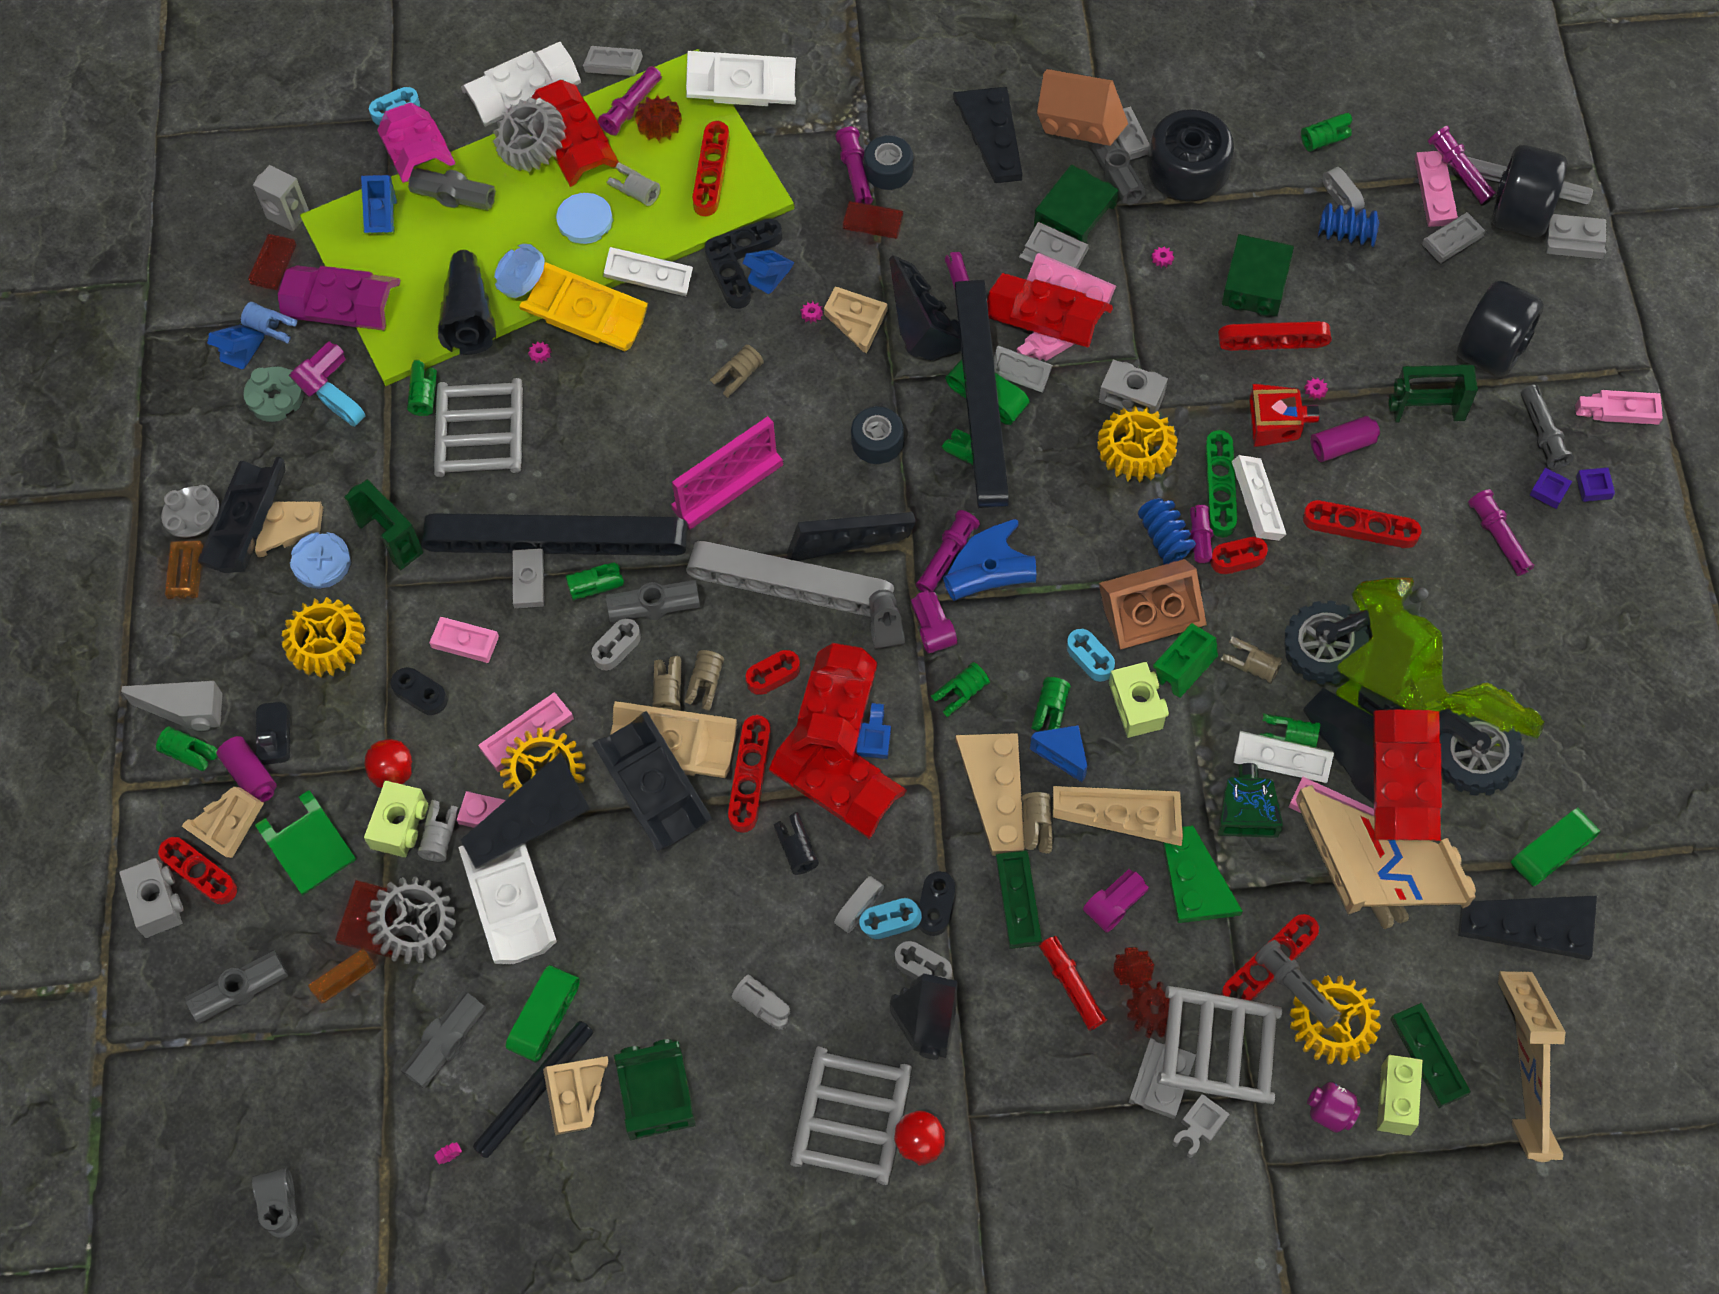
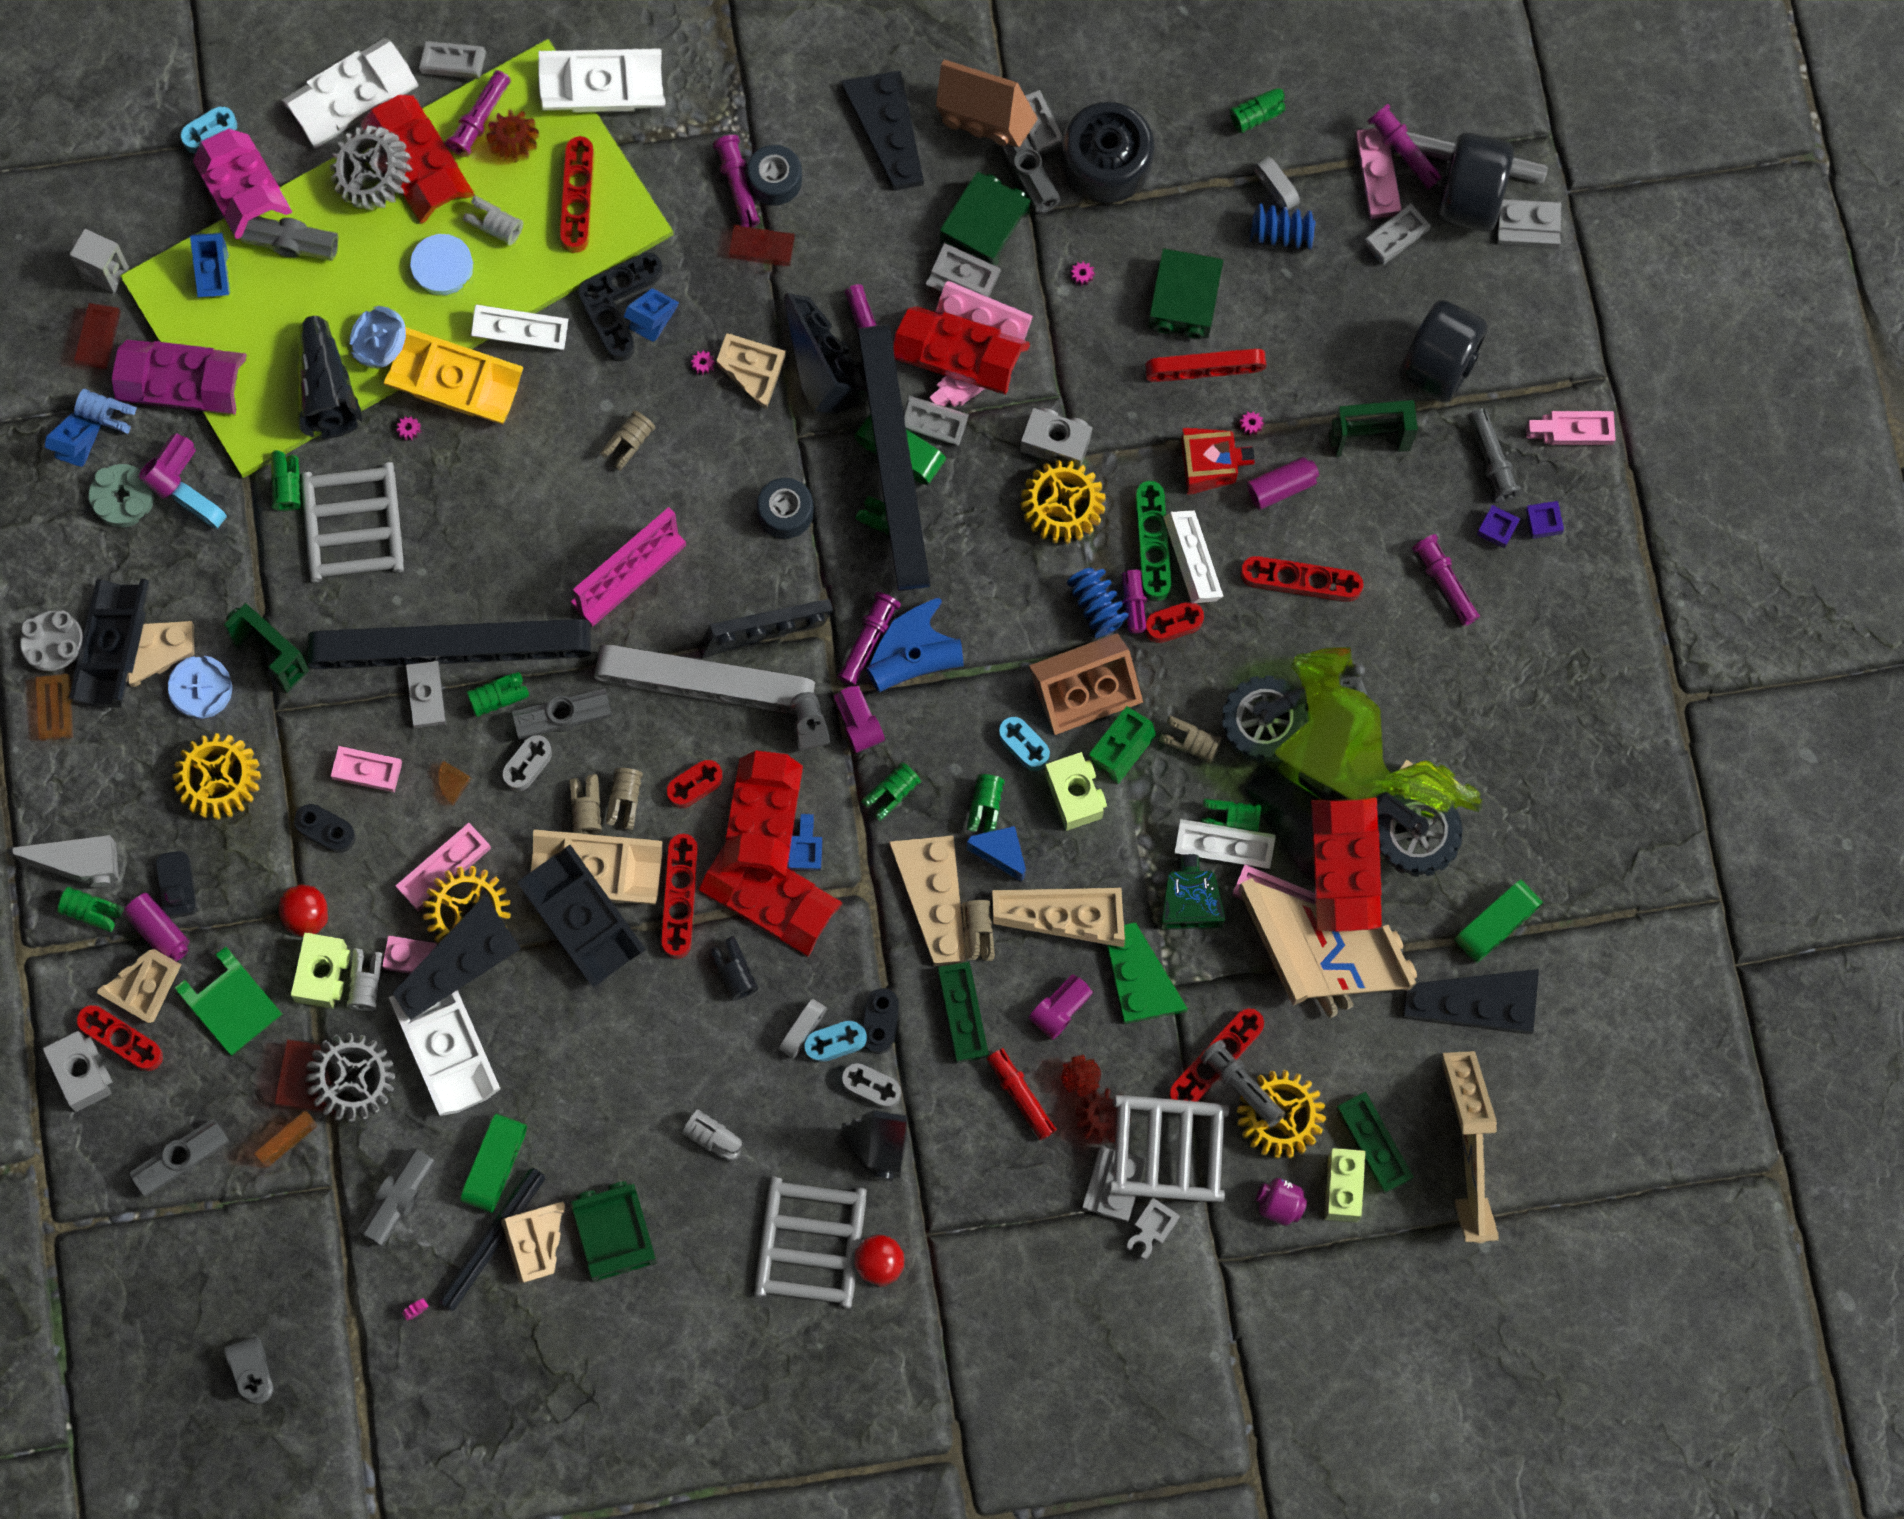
camera: 10 degrees left, 10 degrees up
(544, 657) = (452, 782): none -> clear orange tile

